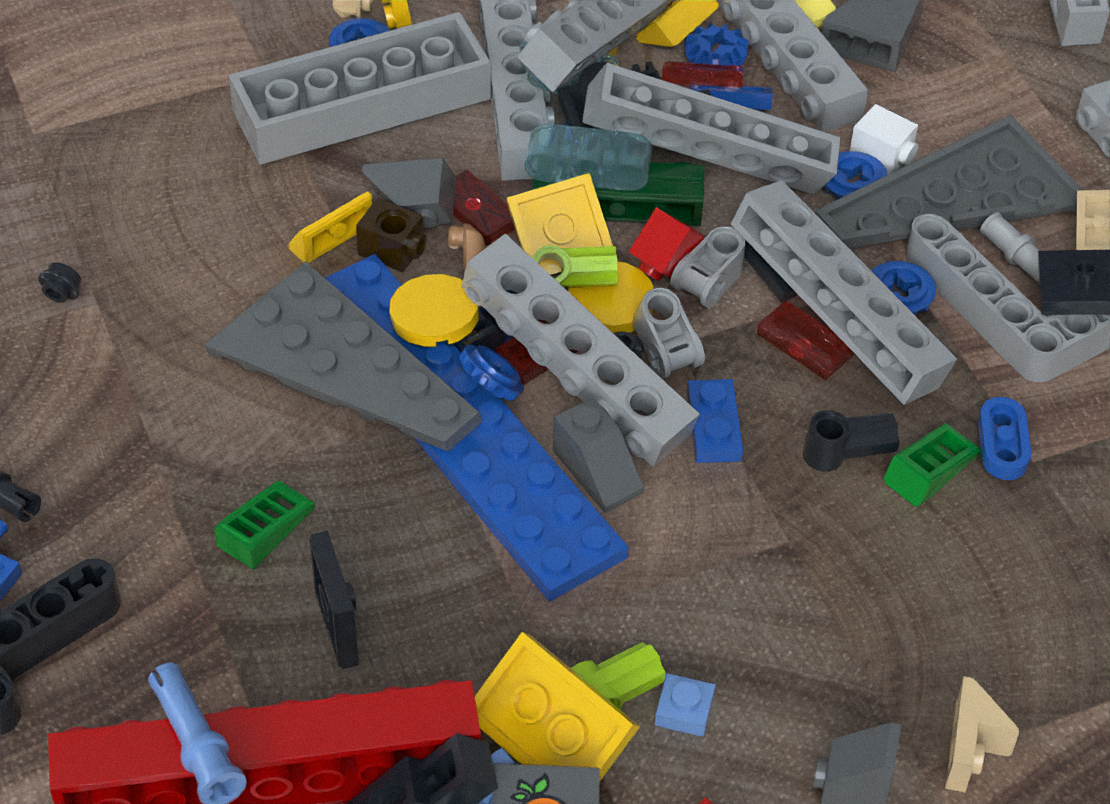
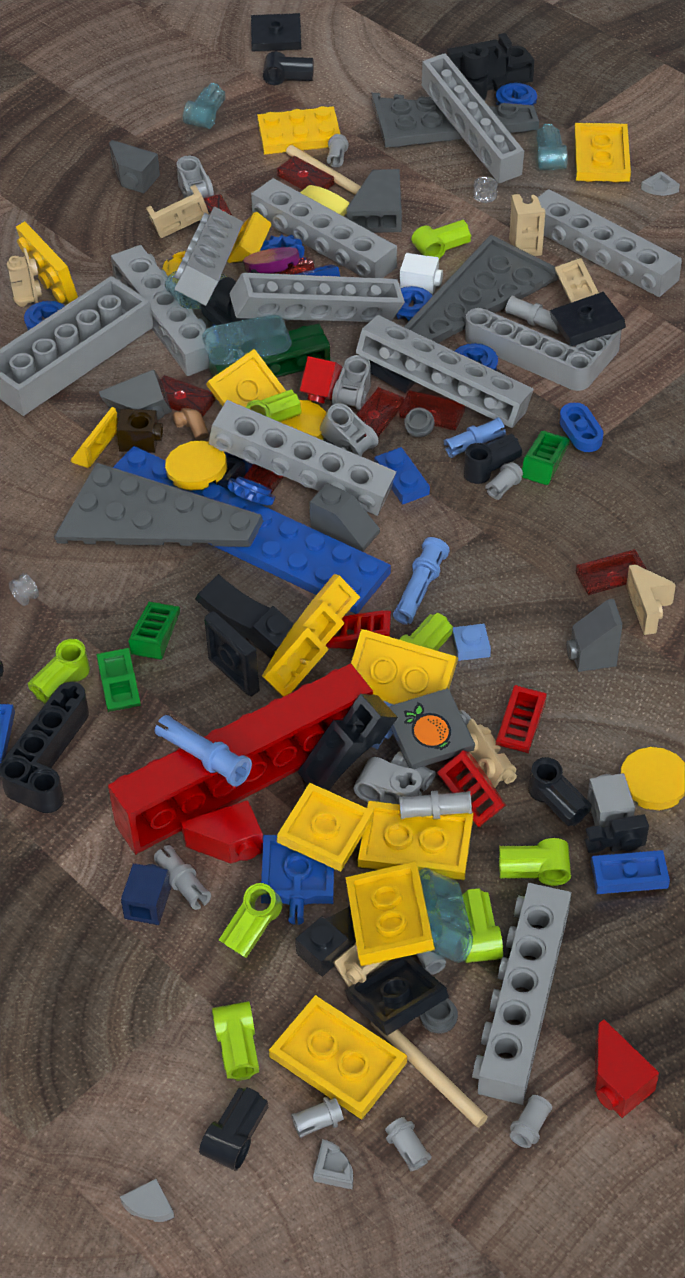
camera: 20 degrees left, 0 degrees up
(108, 536) = (61, 669): none -> lime piece
(125, 404) = (23, 589): none -> clear bush
(178, 578) = (118, 679): none -> green slope
(389, 550) = (251, 619): none -> black slope
(456, 612) = (309, 635): none -> yellow slope
(558, 620) = (370, 621): none -> red slope
(672, 572) = (424, 571): none -> medium blue pin
(685, 56) = (271, 260): none -> magenta tile
(729, 317) = (380, 409): none -> clear red tile
(776, 352) = (419, 422): none -> dark grey plate
(844, 400) = (480, 434): none -> medium blue pin
(848, 481) = (510, 475): none -> light grey pin
(928, 101) = (436, 241): none -> lime piece
(939, 671) = (607, 571): none -> clear red tile
(1048, 45) = (485, 189): none -> clear bush
(1066, 119) = (527, 225): none -> tan hinge

